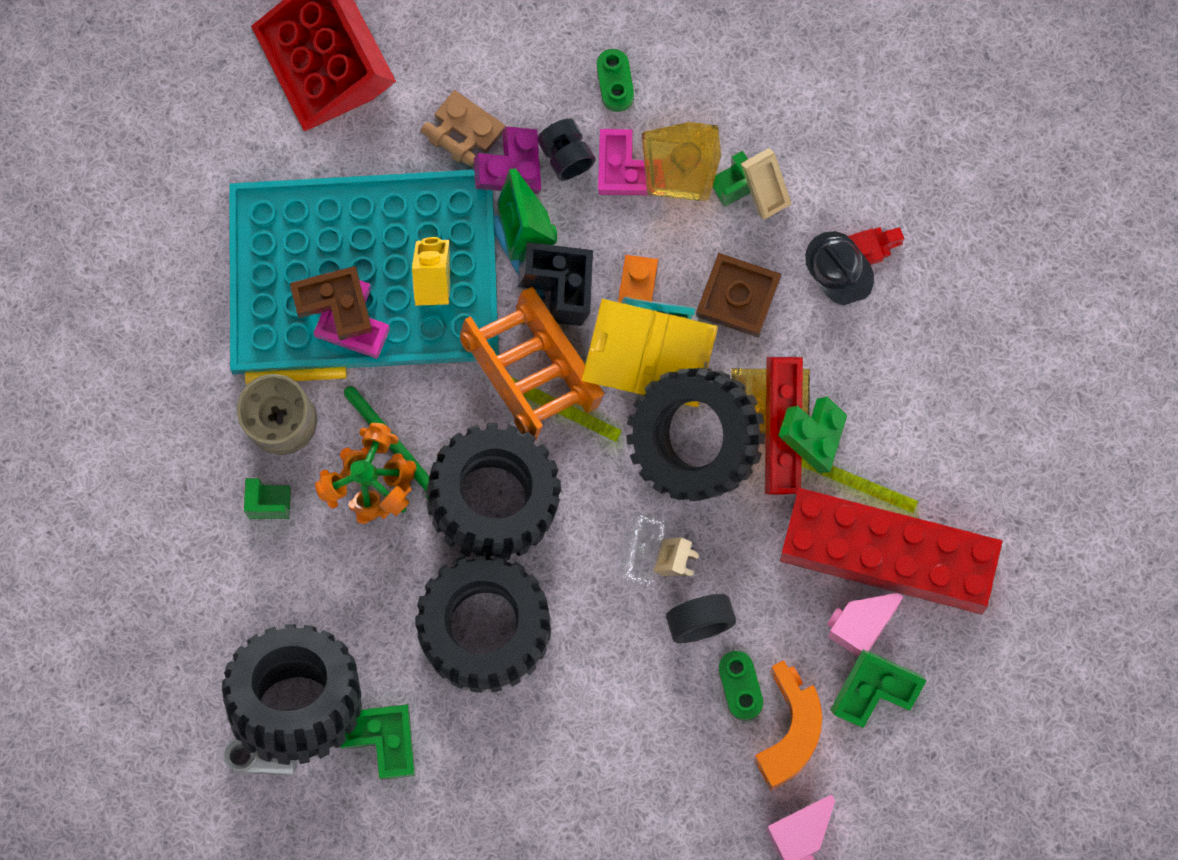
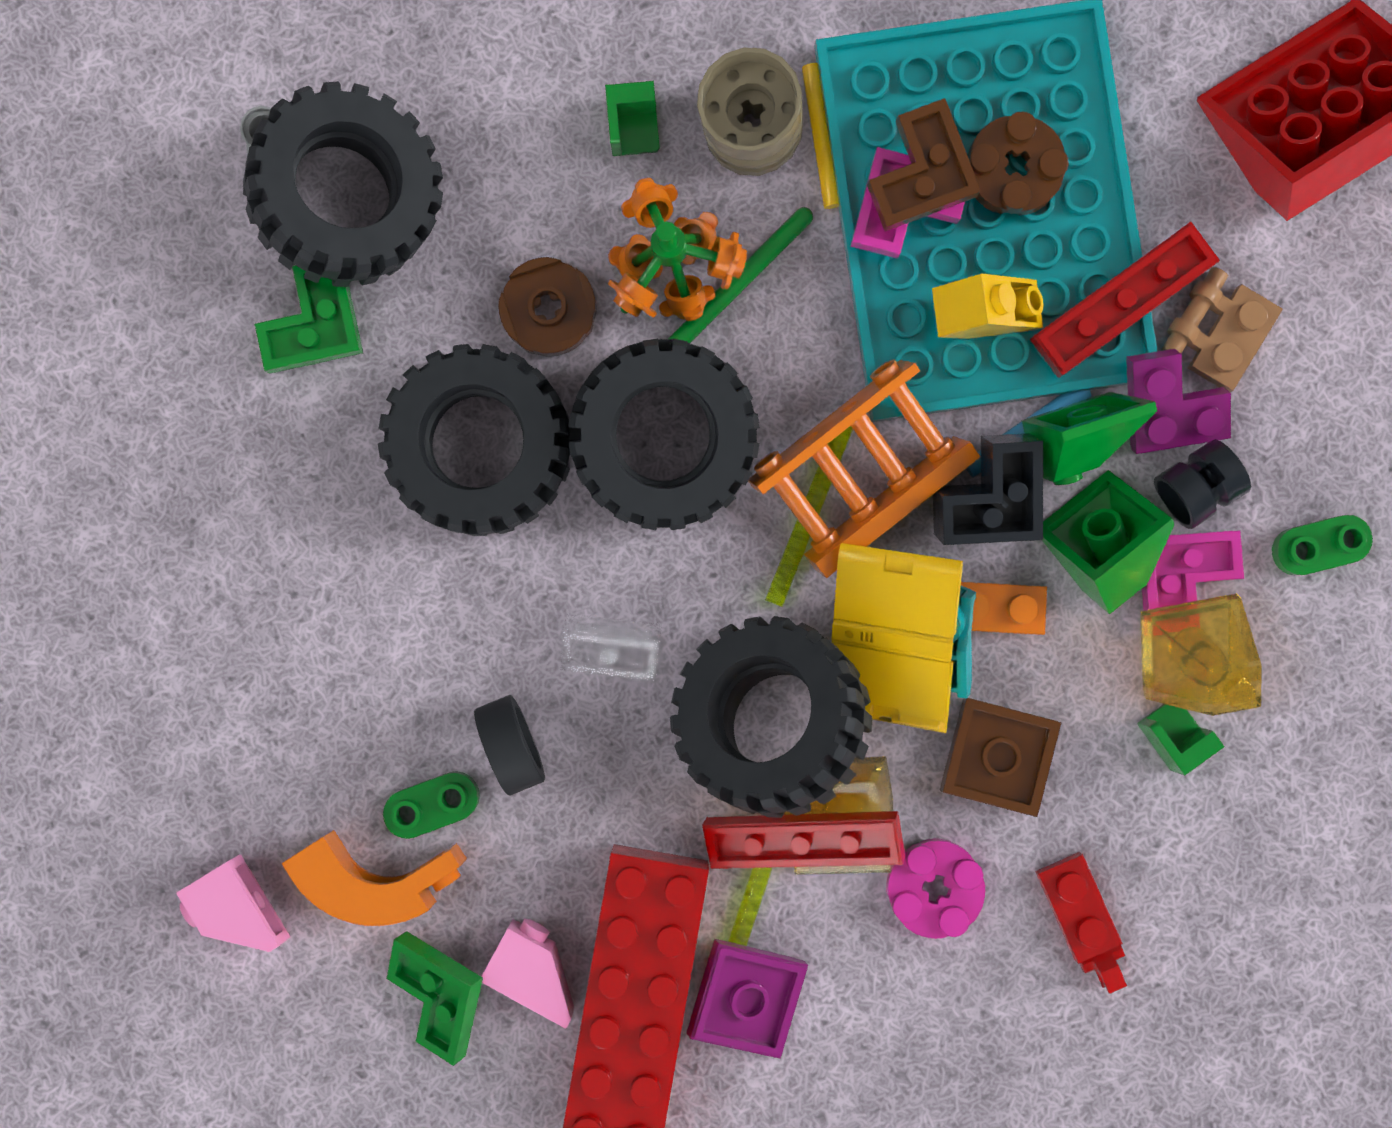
camera: 80 degrees right, 15 degrees up
(336, 228) = (1044, 159): none -> reddish brown plate
(376, 560) = (523, 295): none -> reddish brown plate
(437, 187) = (1124, 299): none -> red tile
(597, 211) = (1108, 540): none -> green slope
(673, 557) = (599, 698): tan tile -> none
(766, 183) = (1176, 785): tan tile -> none
(814, 436) = (790, 888): green plate -> none
(839, 267) = (1056, 900): black piece -> none
(843, 336) = (947, 914): none -> dark pink plate
(893, 476) = (747, 999): none -> magenta tile

